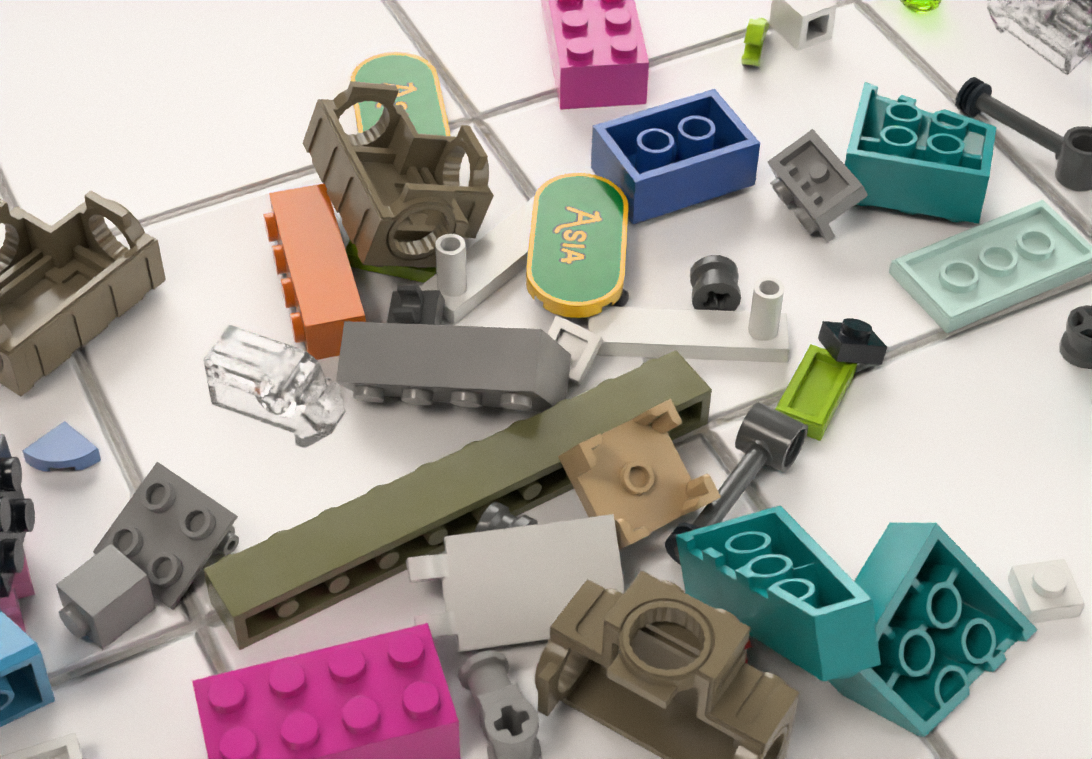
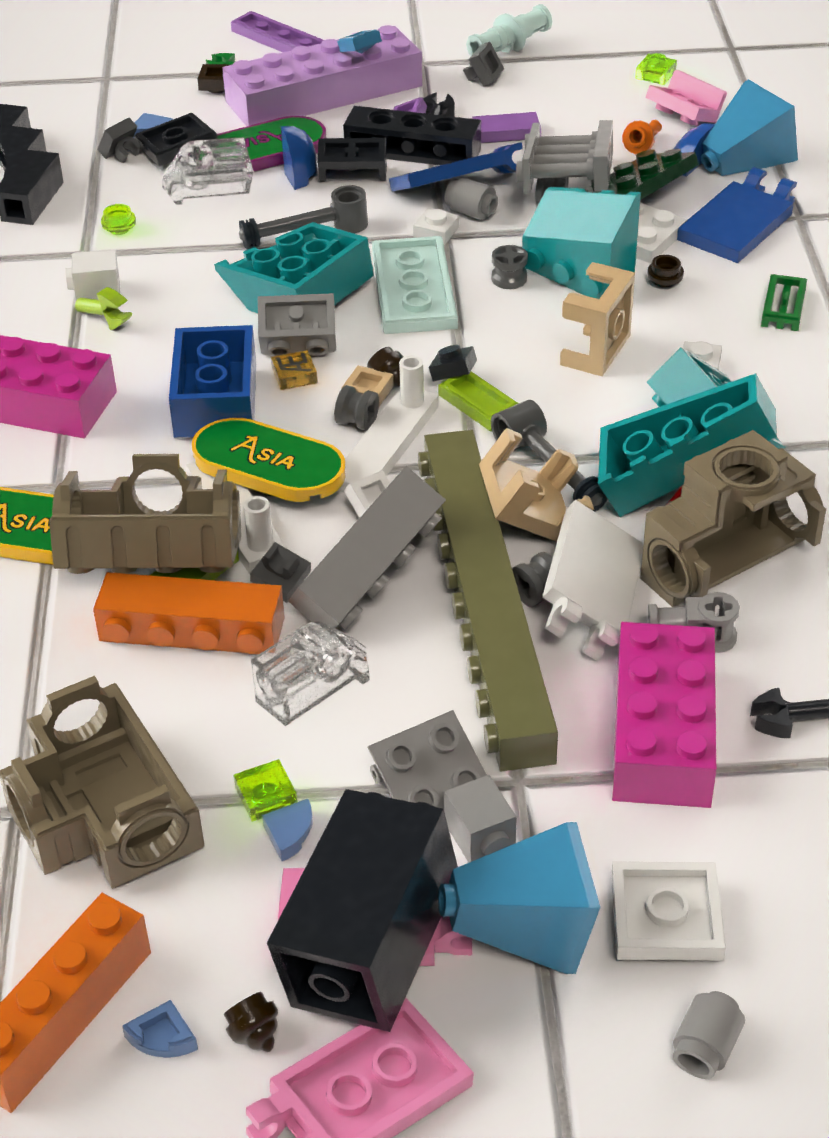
camera: 65 degrees left, 5 degrees down
(98, 412) = (264, 789): none -> clear neon green plate
(752, 270) = (372, 380): none -> tan plate
(761, 218) = (294, 370): none -> clear yellow tile
(808, 289) = (387, 361): none -> dark brown plate
(1011, 455) = (605, 319): none -> tan panel

